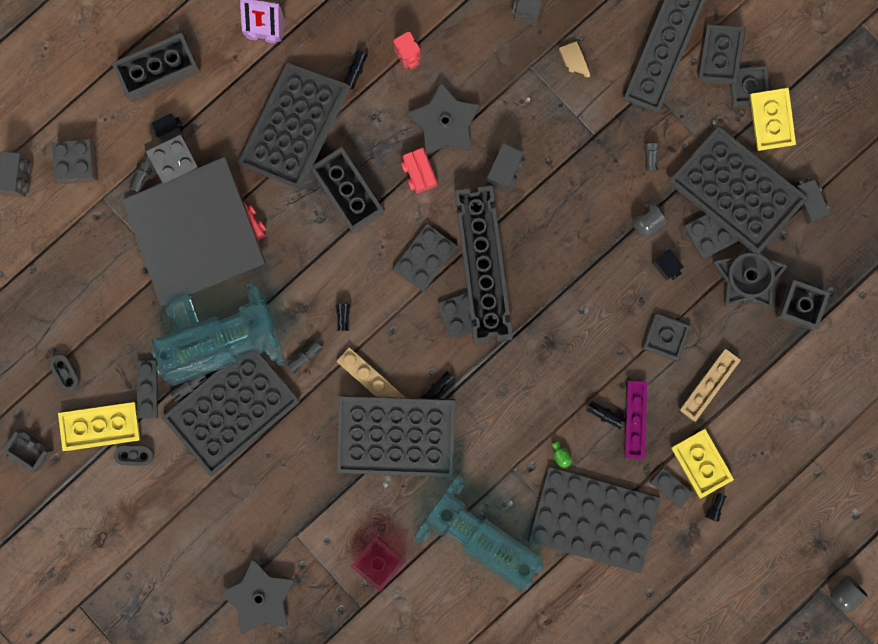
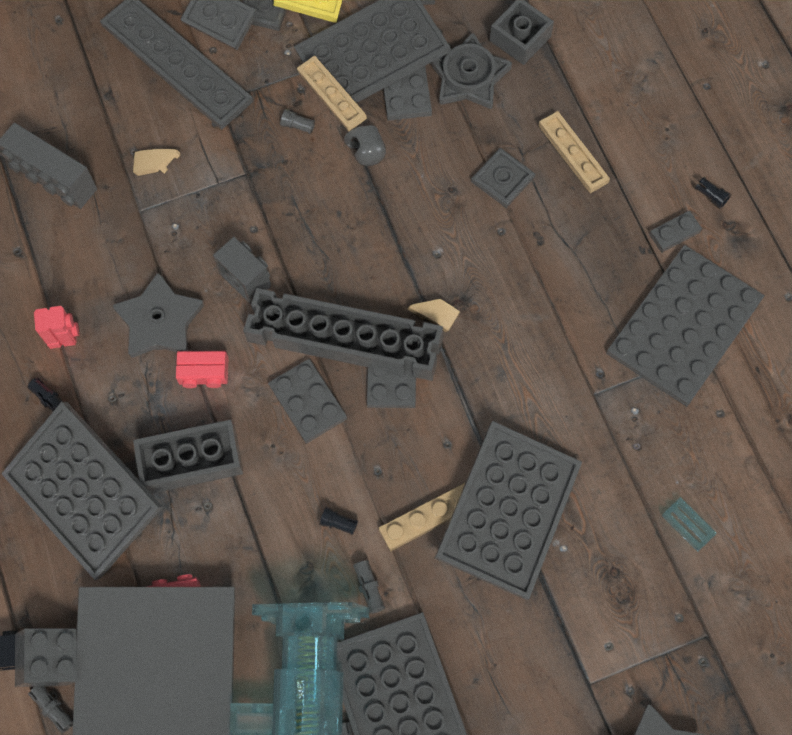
camera: 70 degrees left, 15 degrees down
(378, 563) = (660, 587): clear pink brick -> none
(438, 387) = (467, 439): black pin -> none
(443, 555) = (695, 517): none -> clear light blue tile
(481, 539) = (666, 454): clear light blue brick -> none
(530, 327) = (436, 312): none -> tan slope
(561, 455) = (599, 332): bright green cylinder -> none
(606, 415) = (568, 268): black pin -> none
(636, 419) = (585, 239): magenta plate -> none
(668, 265) = (424, 146): black brick -> none
(681, 175) = (331, 93): none -> tan plate
(702, 463) = (659, 189): light yellow plate -> none

